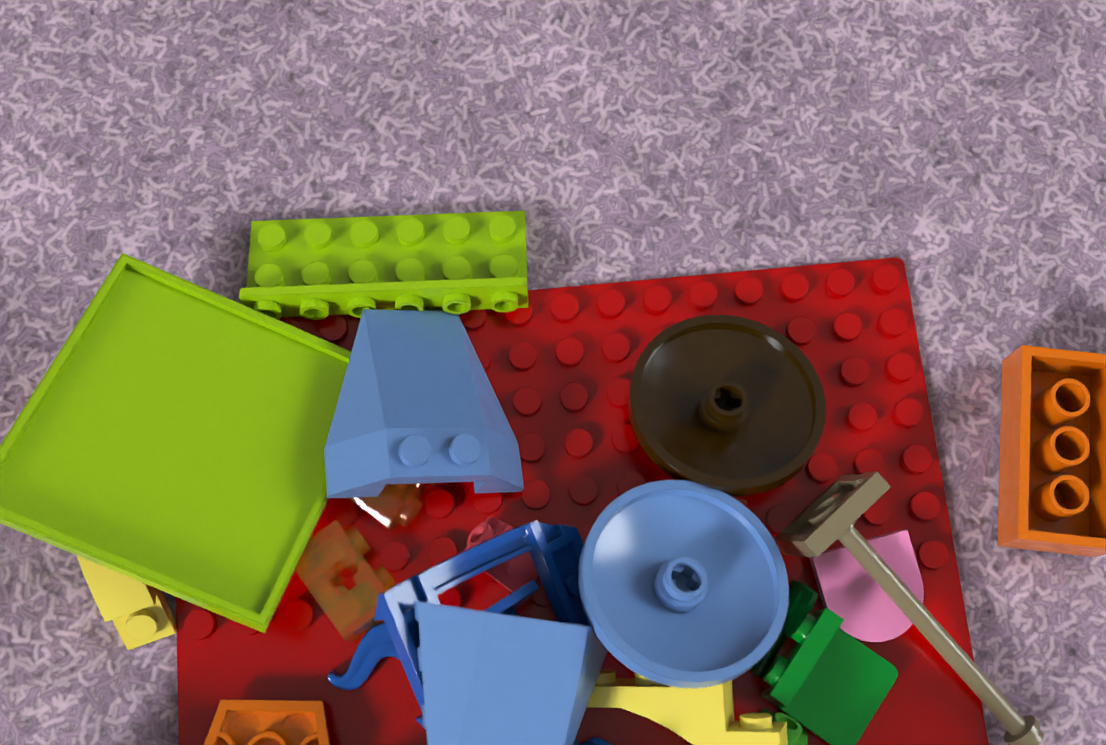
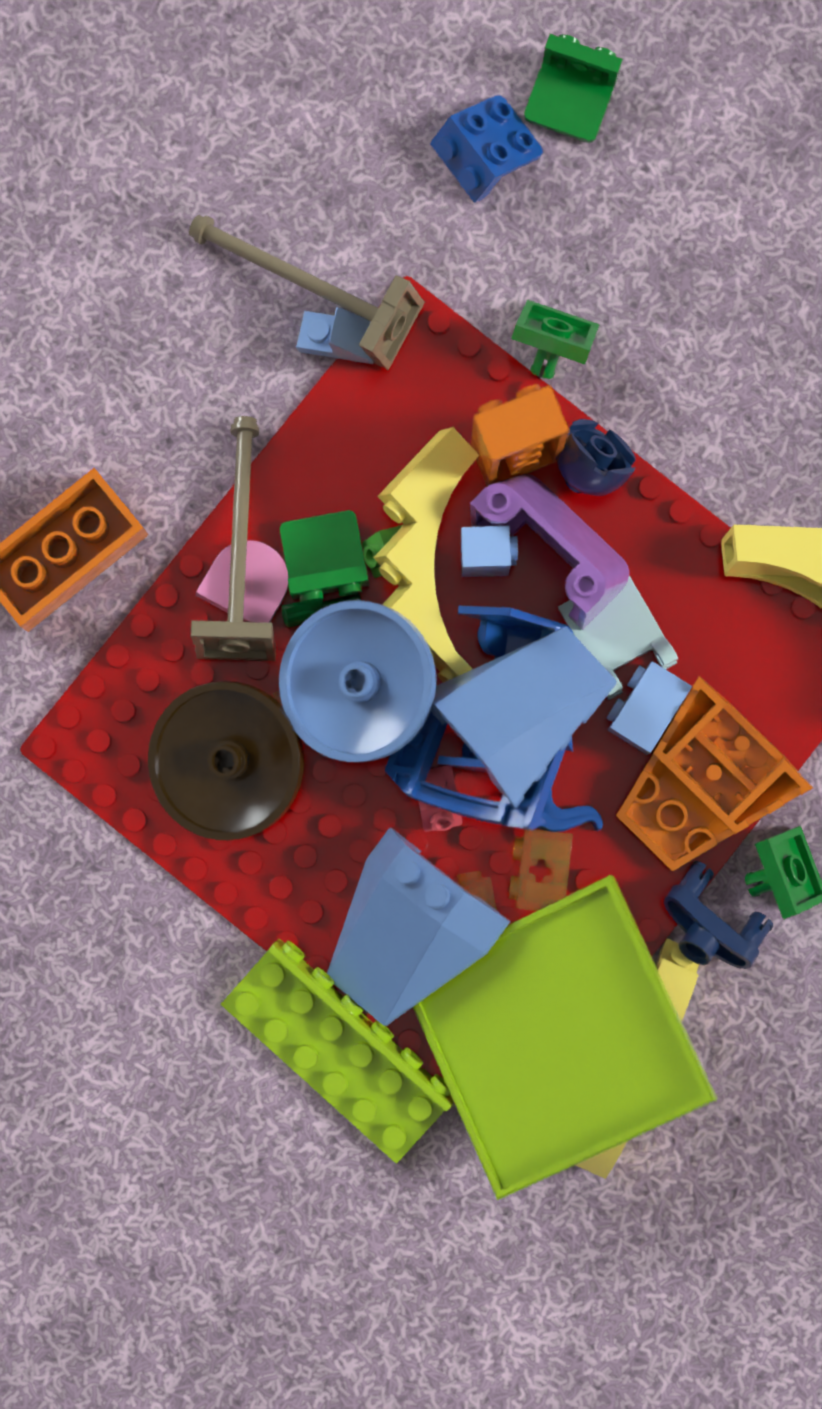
camera: 135 degrees left, 10 degrees up
(136, 670) = (705, 931): none -> dark blue connector

